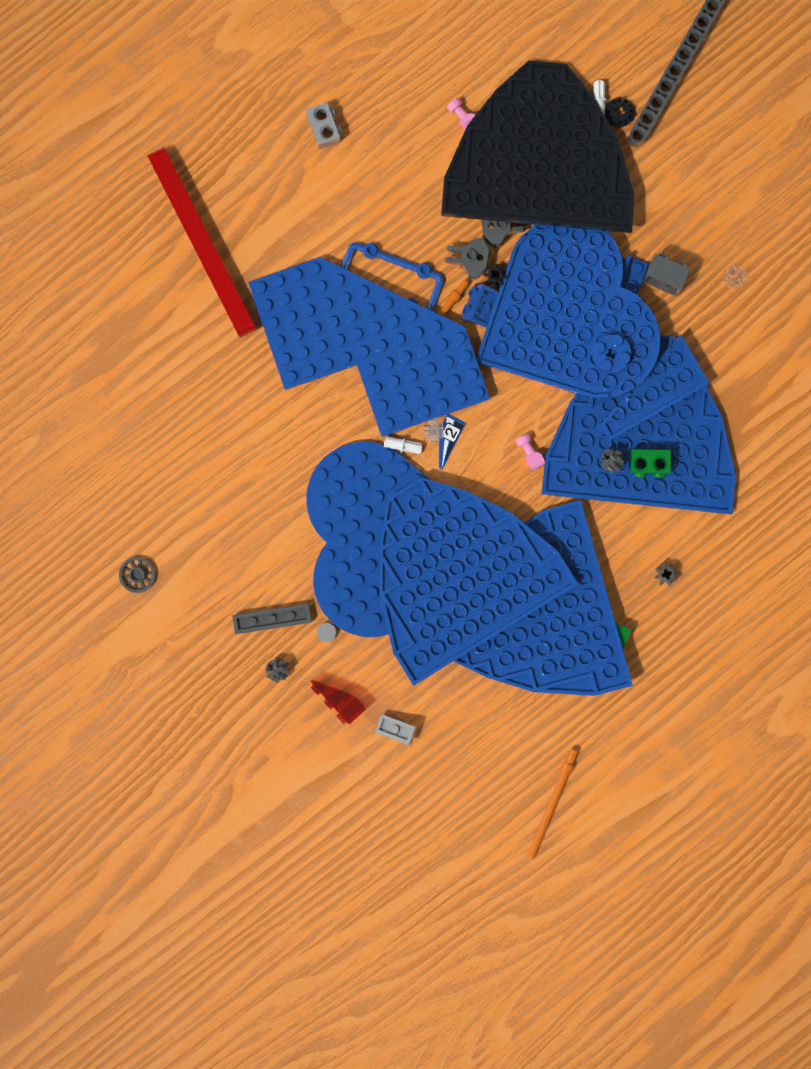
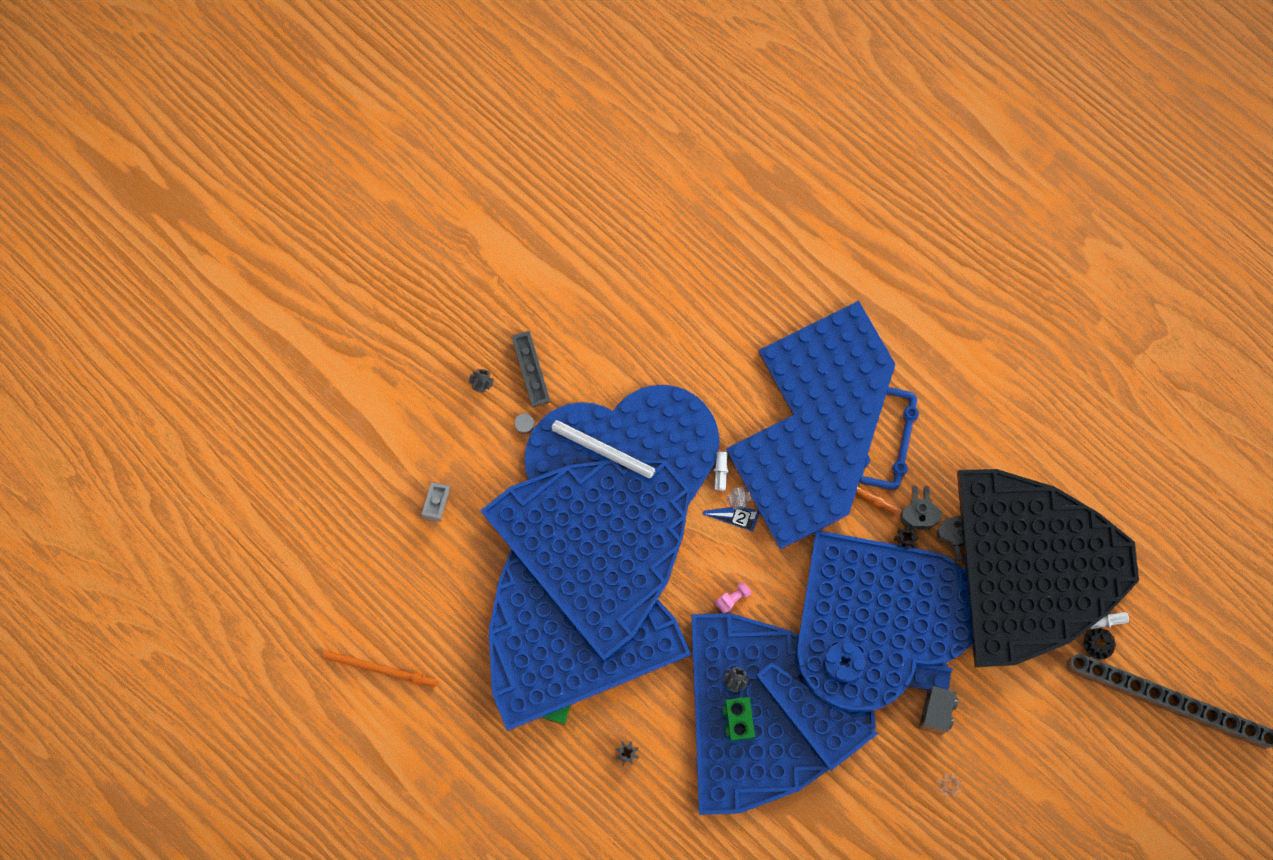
camera: 85 degrees right, 10 degrees down
(137, 574) = (557, 239): dark grey wheel -> none
(201, 242) = (890, 252): red beam -> none
(320, 126) = (1026, 347): light grey brick -> none
(343, 702) = (456, 448): clear red slope -> none
(368, 557) = (603, 449): none -> white axle
(455, 106) = (1072, 476): bright pink leg -> none
(479, 305) = (874, 527): blue bracket -> none

